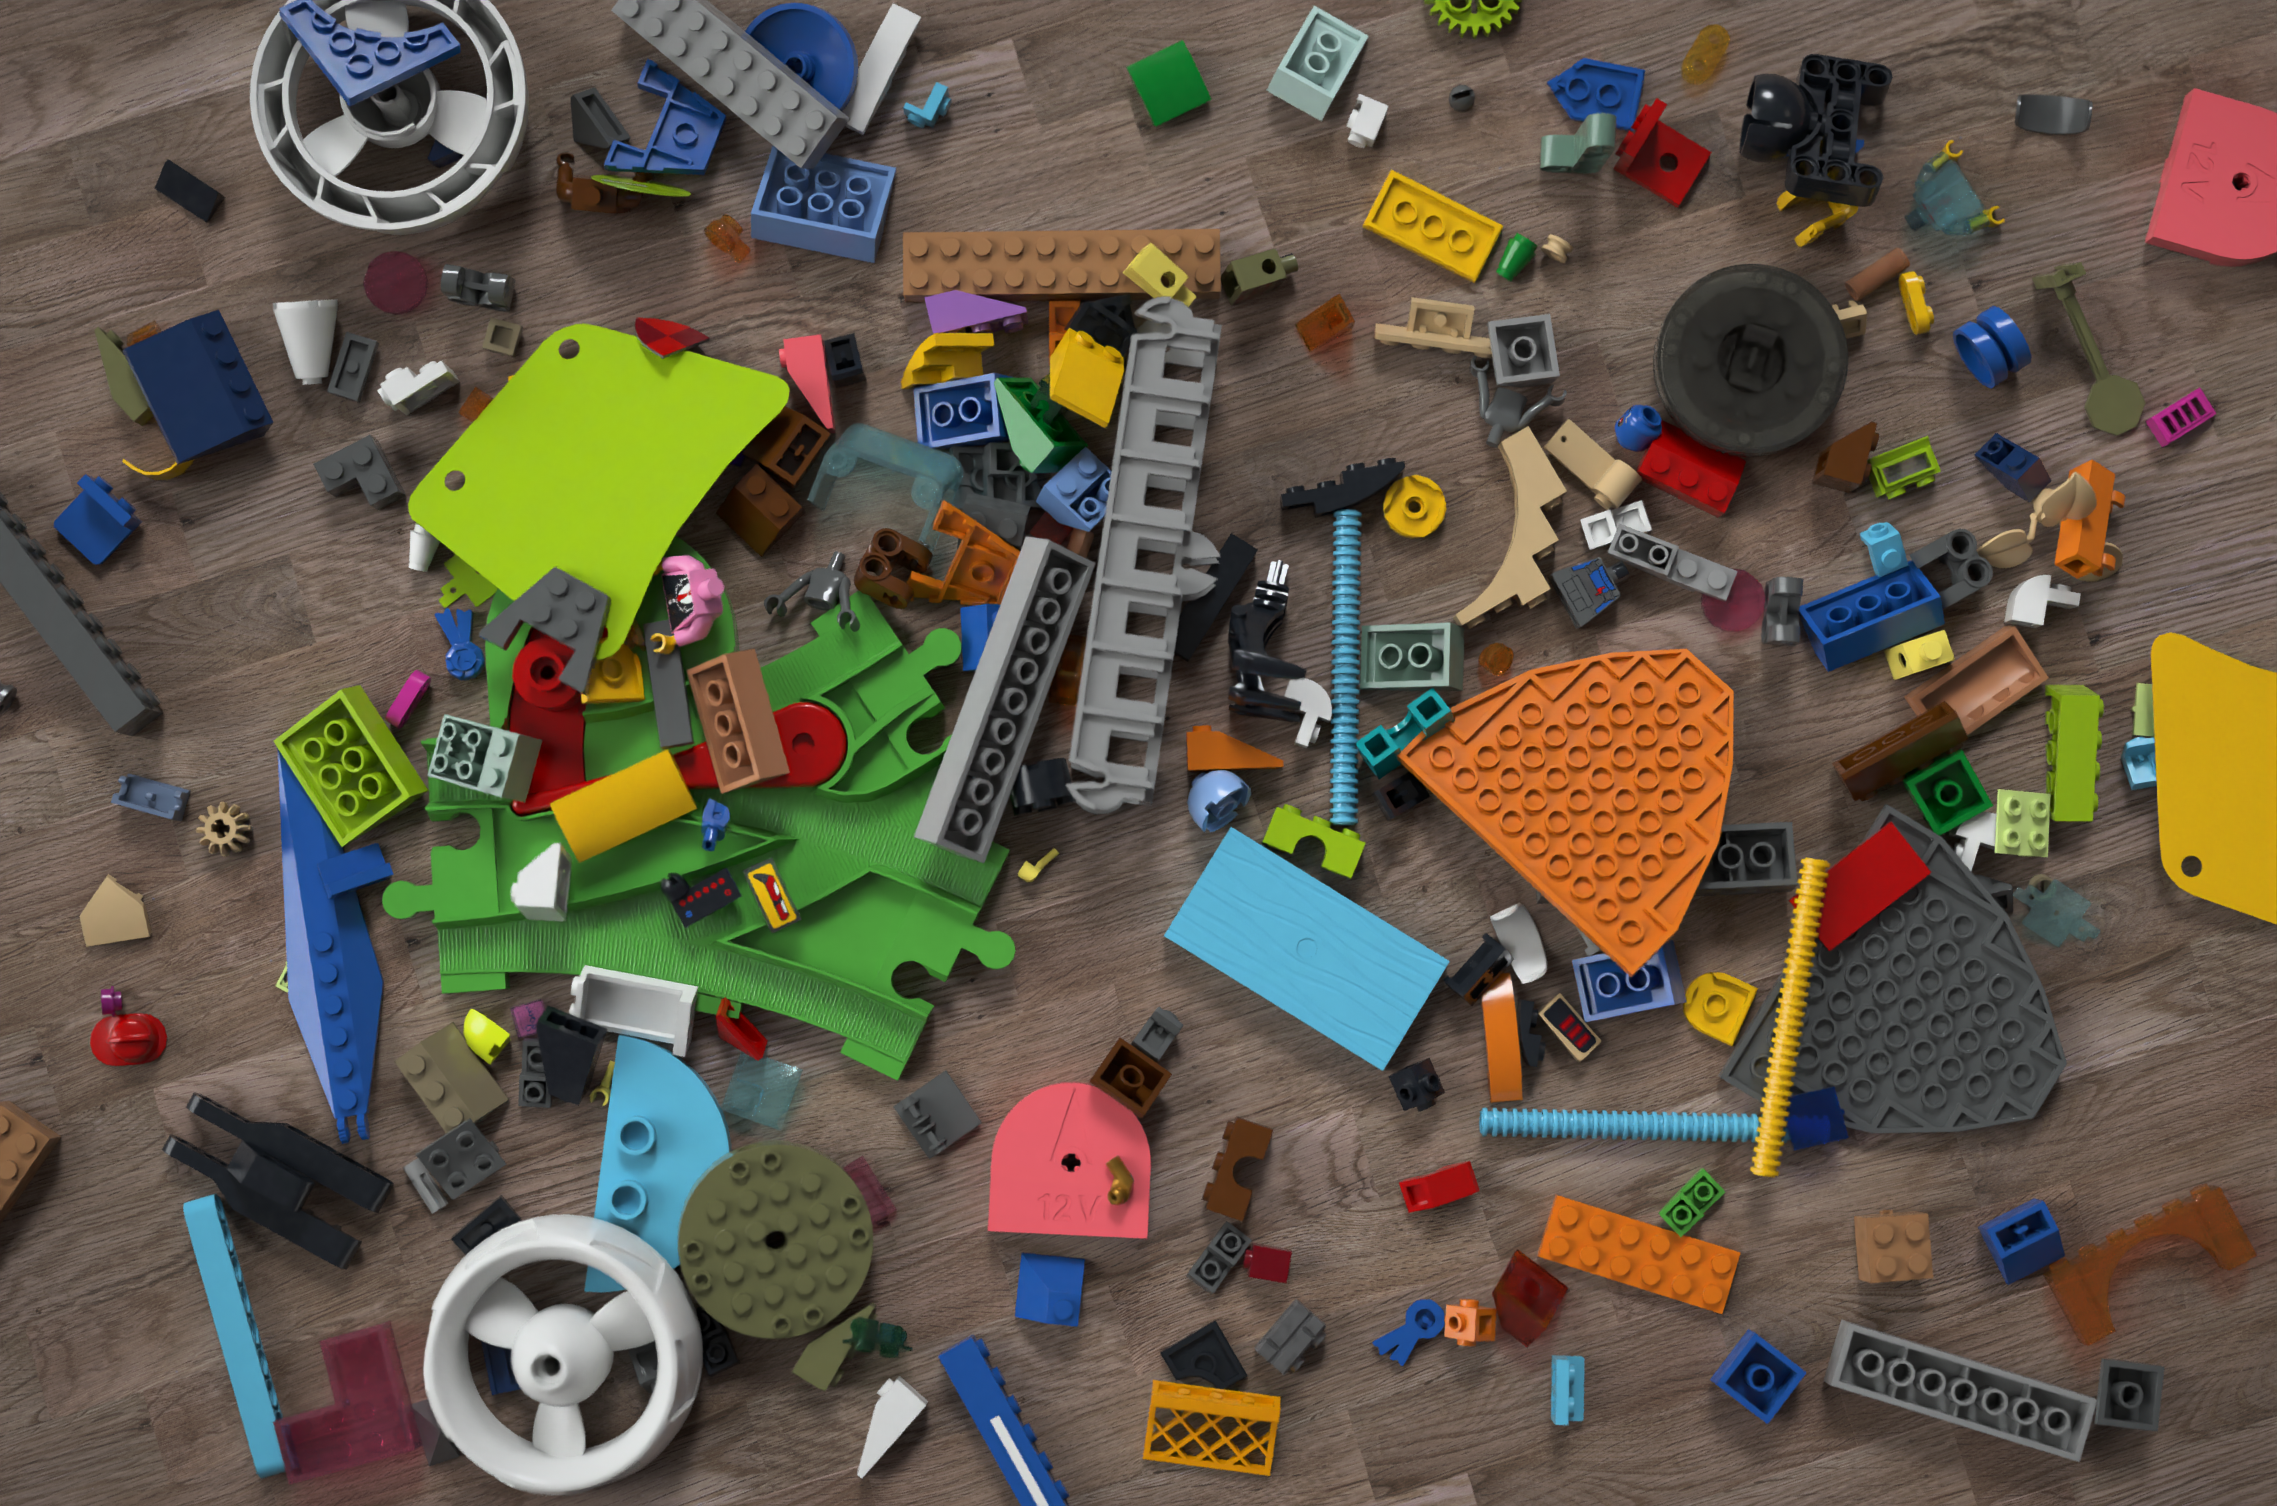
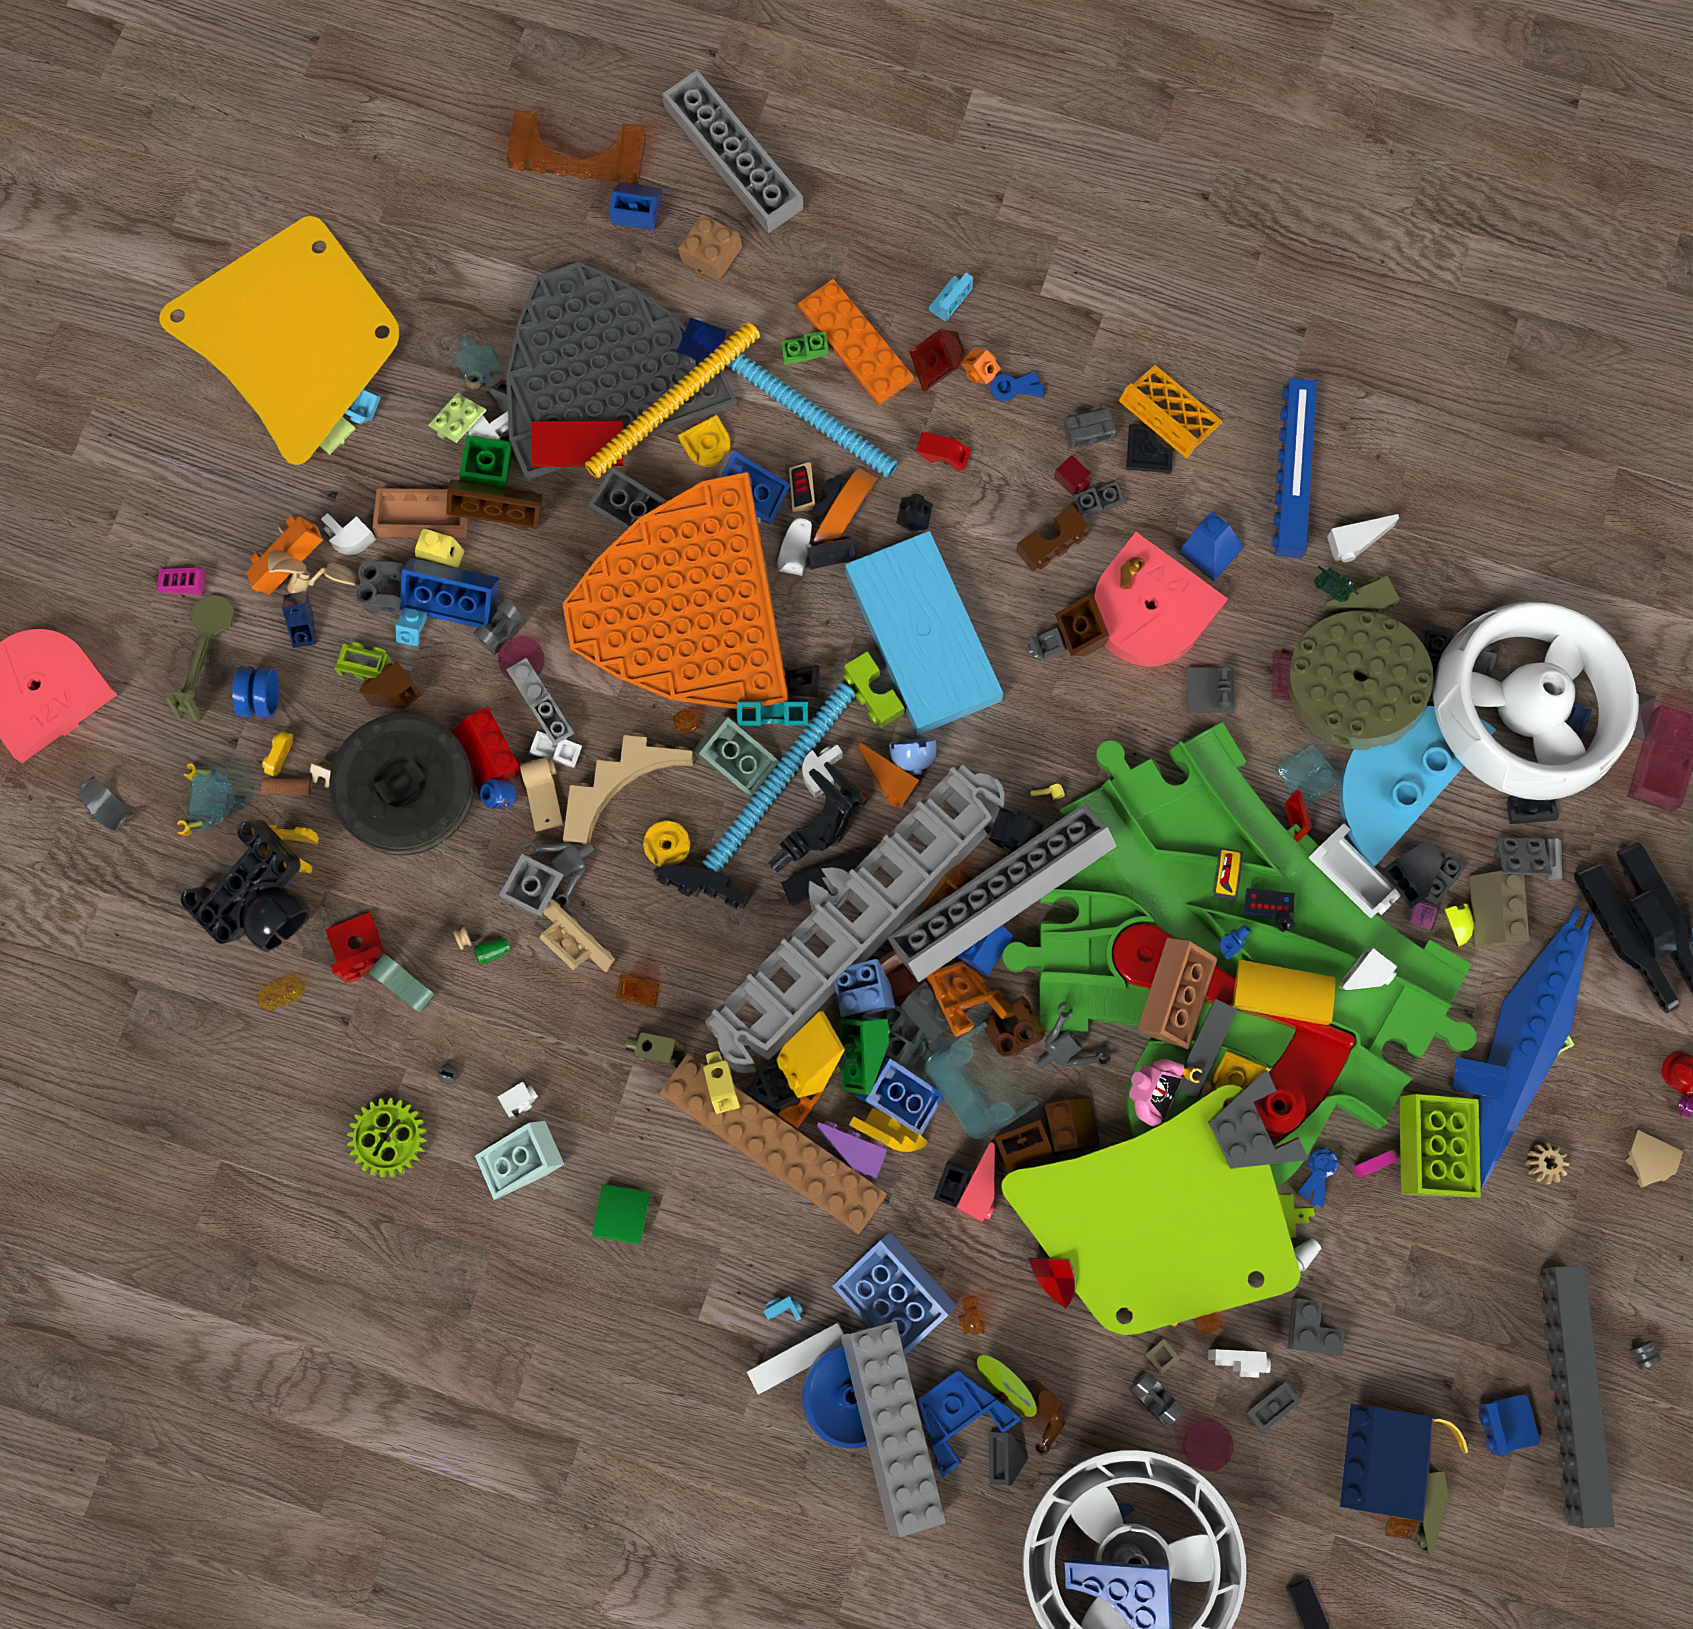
camera: 140 degrees left, 10 degrees down
(151, 797) = (1582, 1216): sand blue hinge -> none
(308, 336) = (1290, 1448): white cone -> none
(484, 758) = (1354, 1081): sand green slope -> none
(605, 1084) = (1405, 842): light yellow hand -> none
(1432, 226) = (526, 1007): yellow tile -> none
(1588, 588) = (600, 722): torso -> none
(1599, 88) = (362, 1015): blue tile -> none
(1758, 1376) = (839, 231): blue brick -> none
(2073, 751) = (395, 439): lime wedge -> none
(2129, 1394) = (641, 86): dark grey slope -> none

